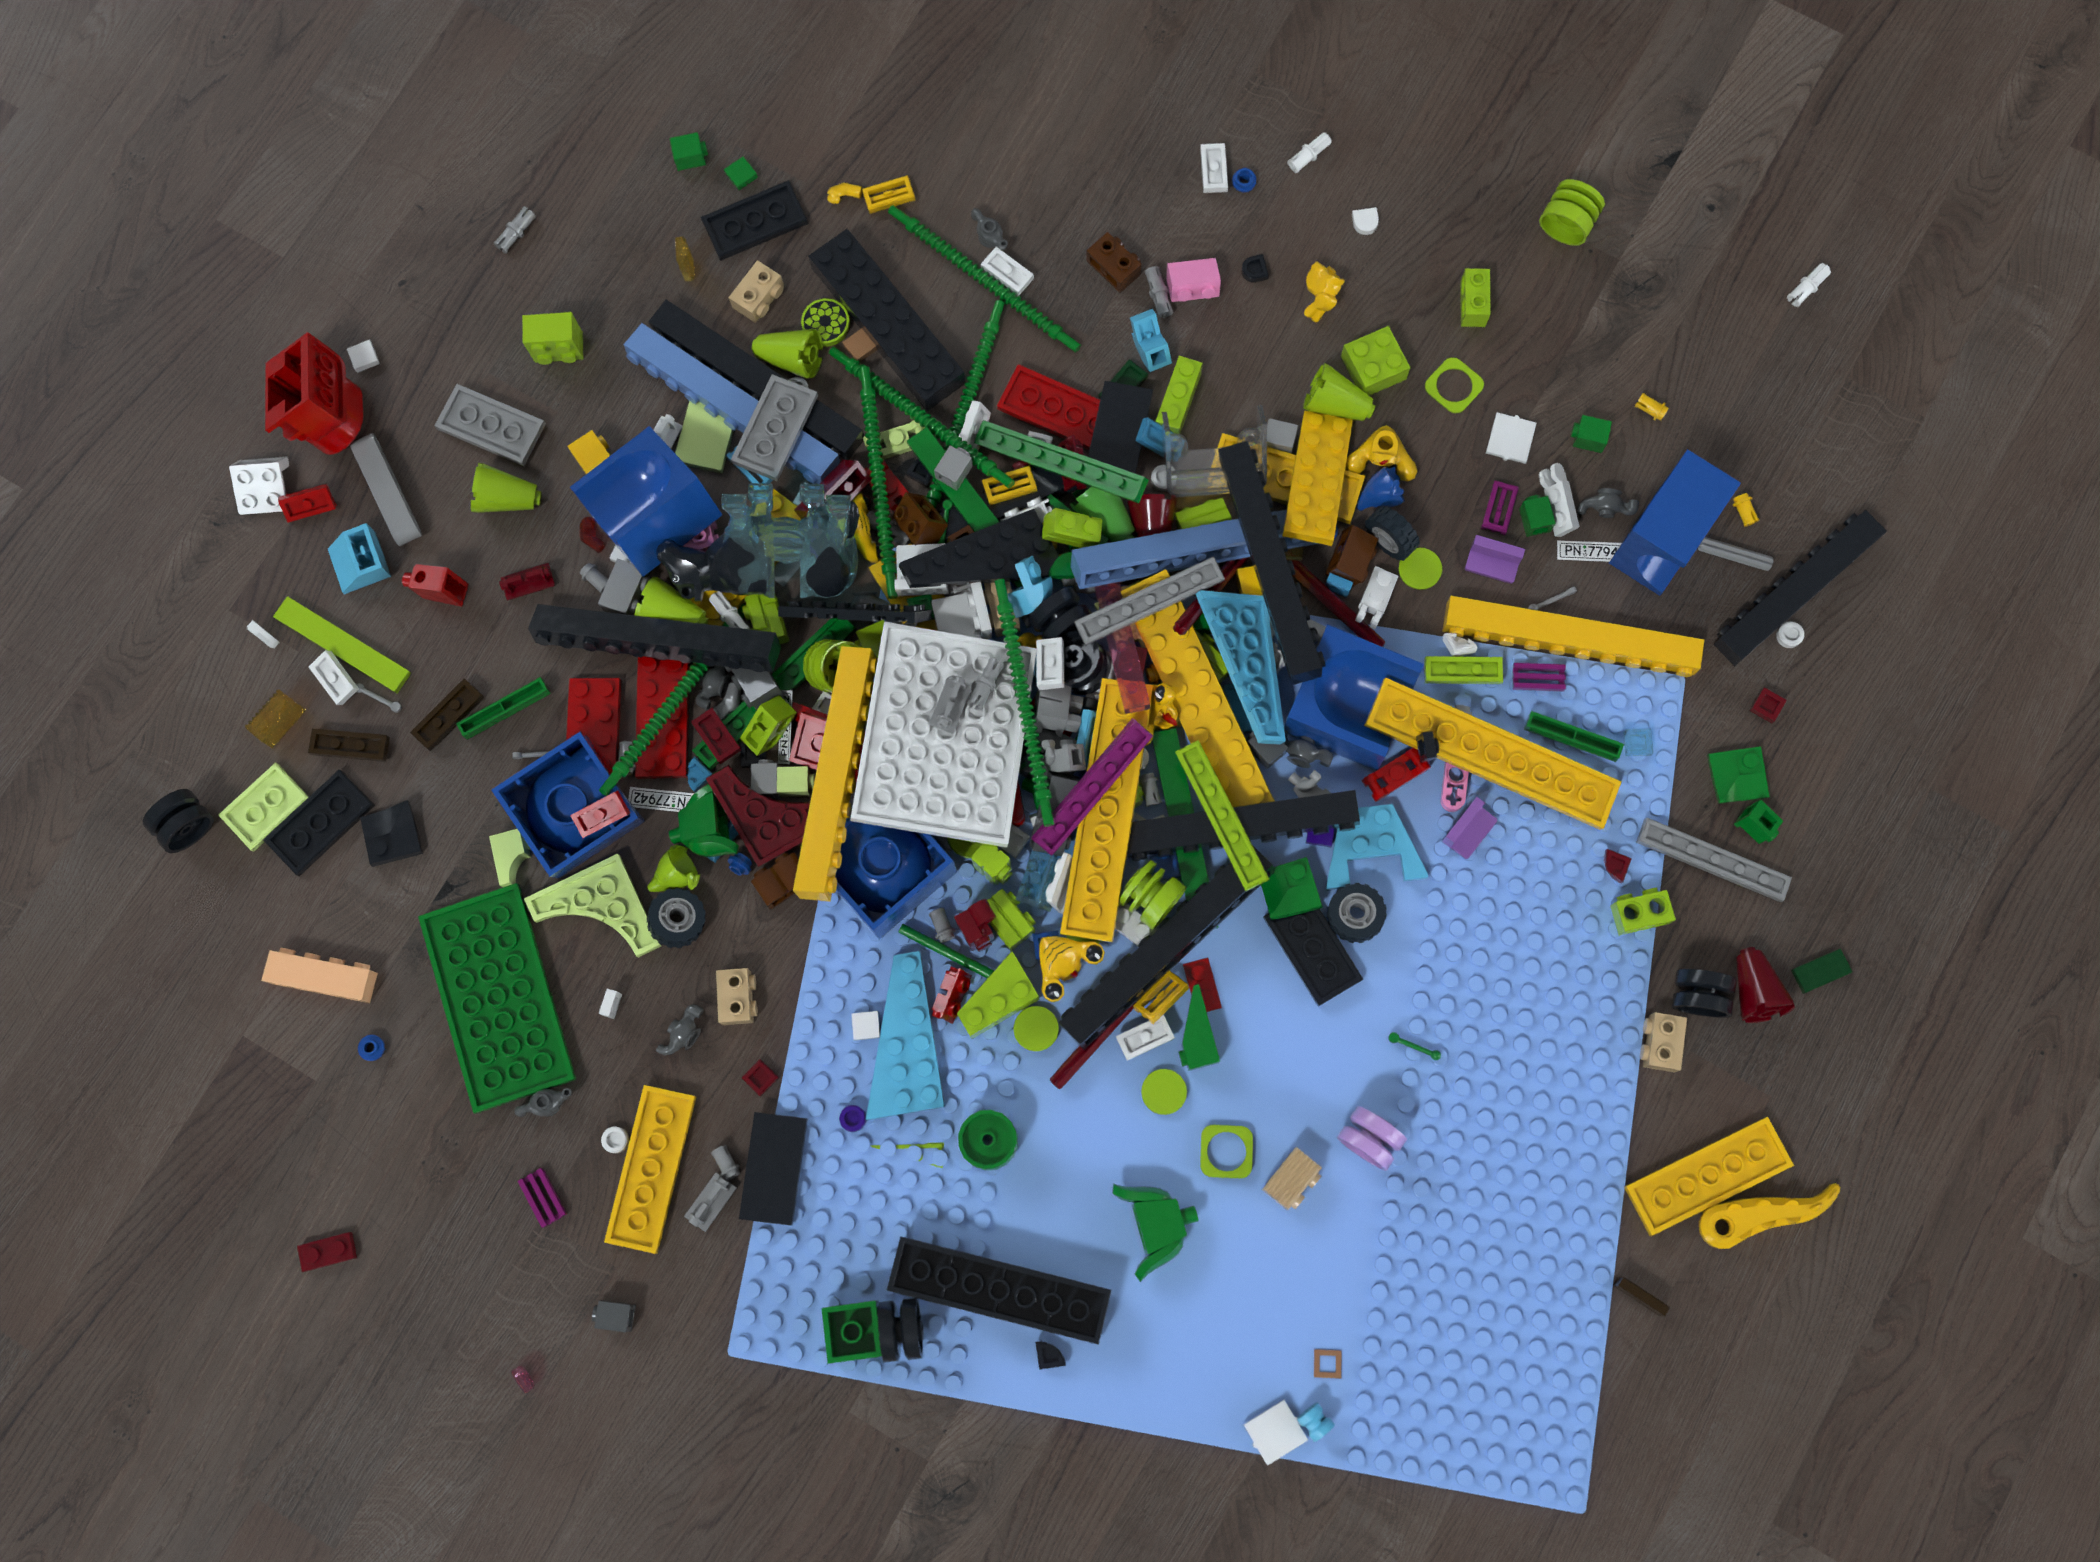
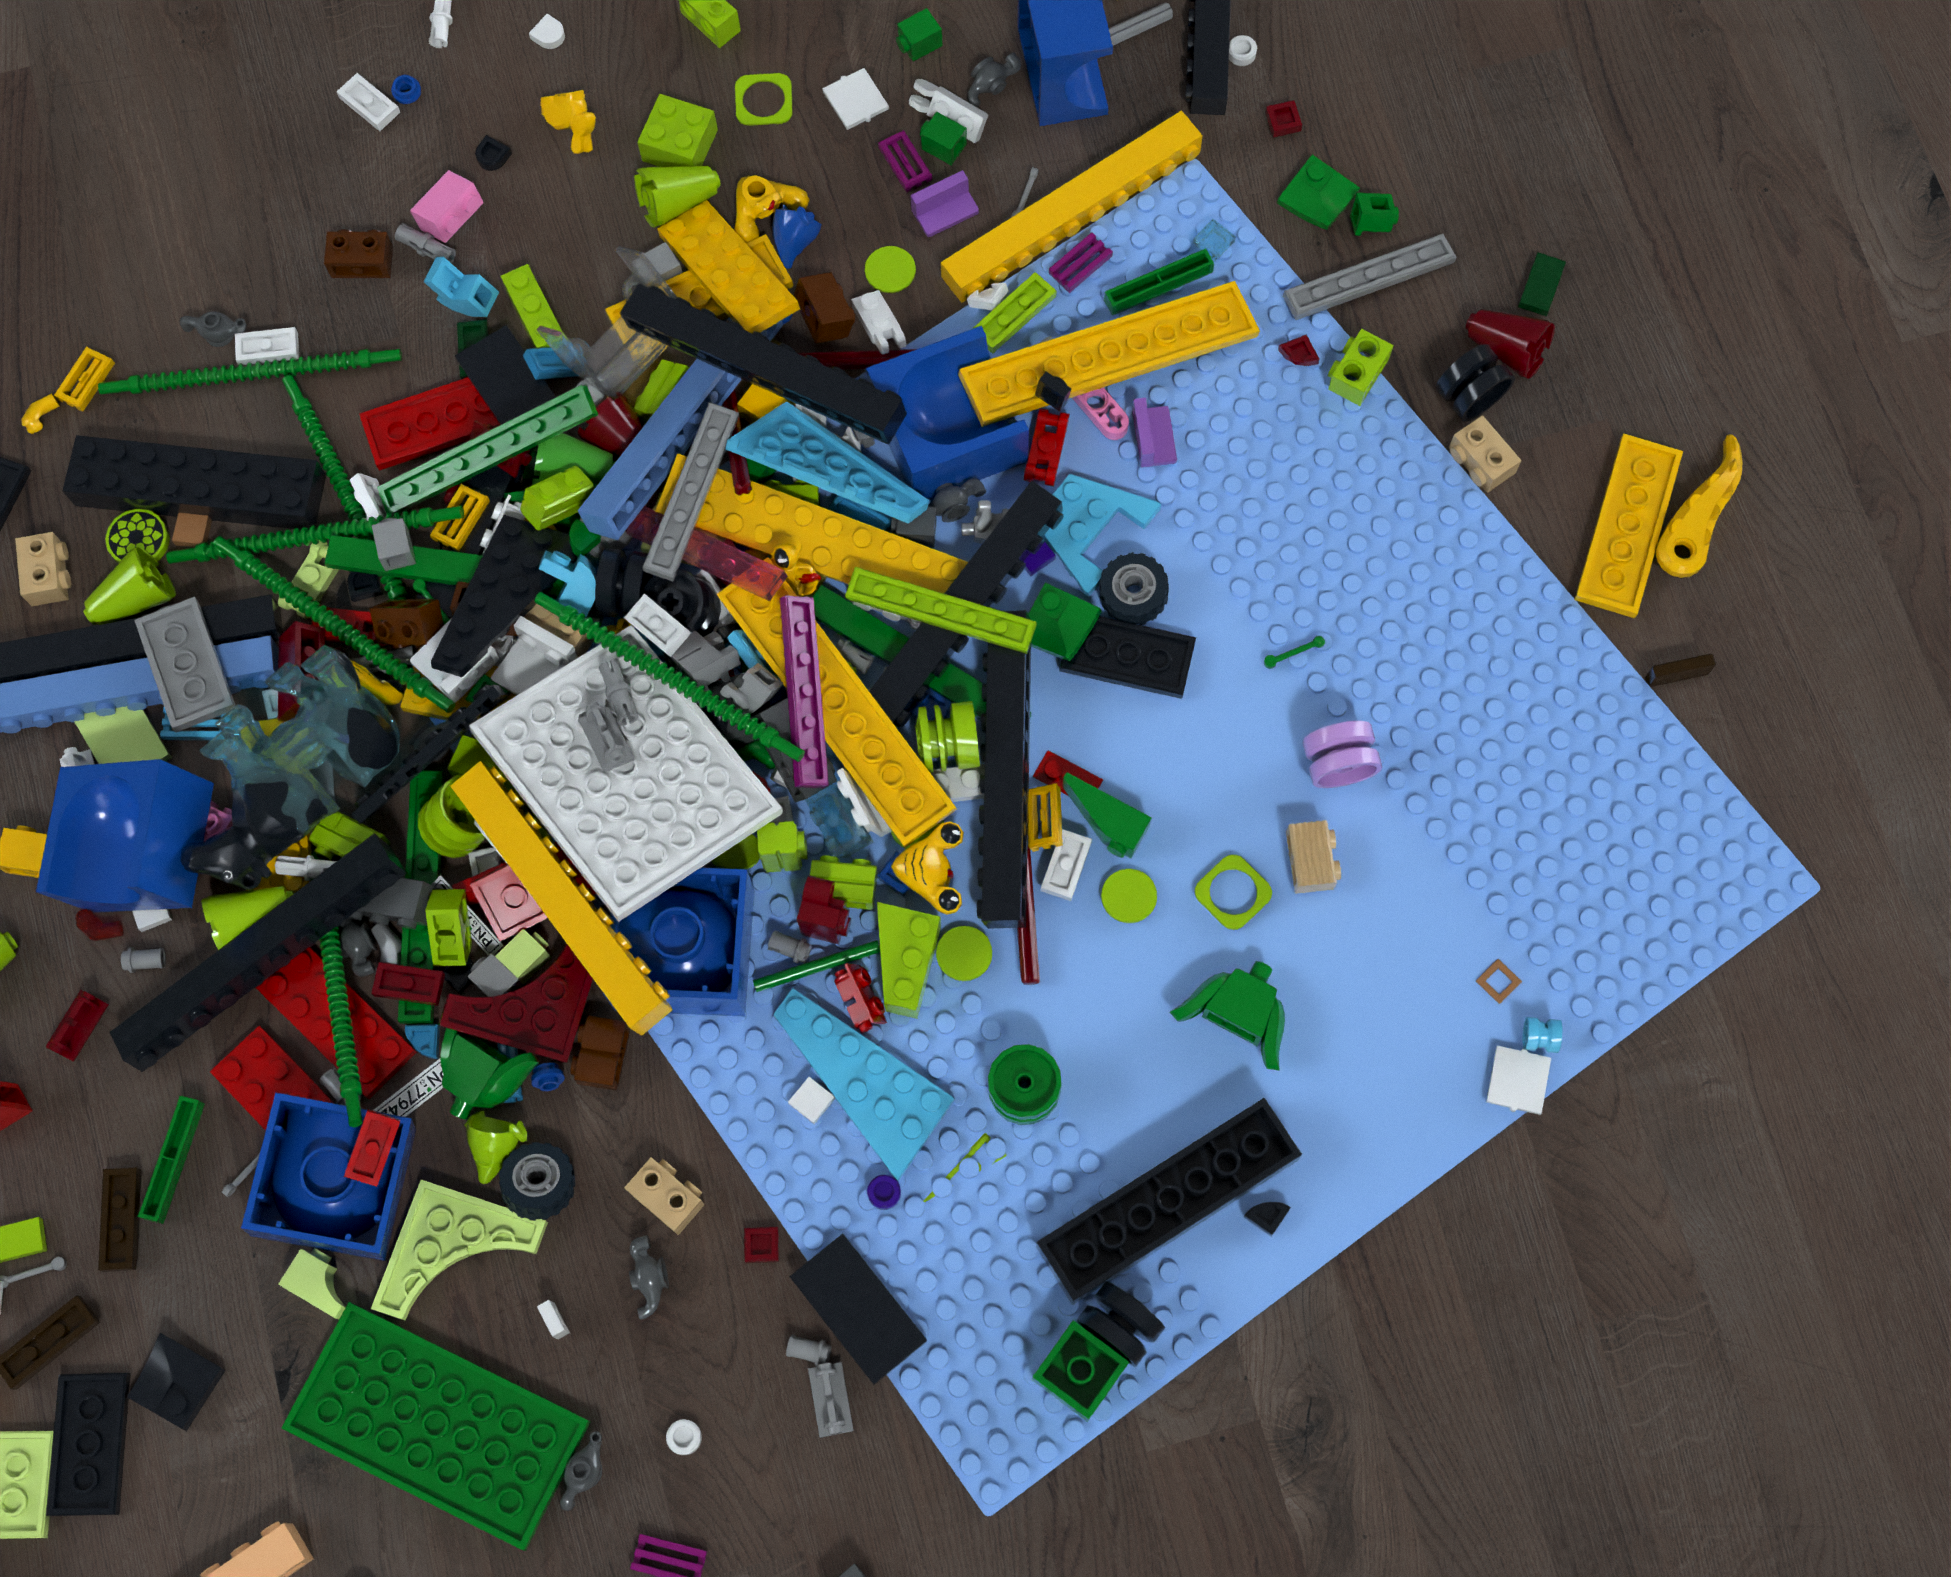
camera: 50 degrees left, 5 degrees down
(623, 589) = (182, 939): light grey brick -> none
(650, 1169) = (745, 1428): yellow plate -> none
(1339, 585) = (837, 340): dark azure tile -> none
(1393, 532) = (840, 252): black wheel -> none
(1586, 550) = (1011, 132): white sticker -> none

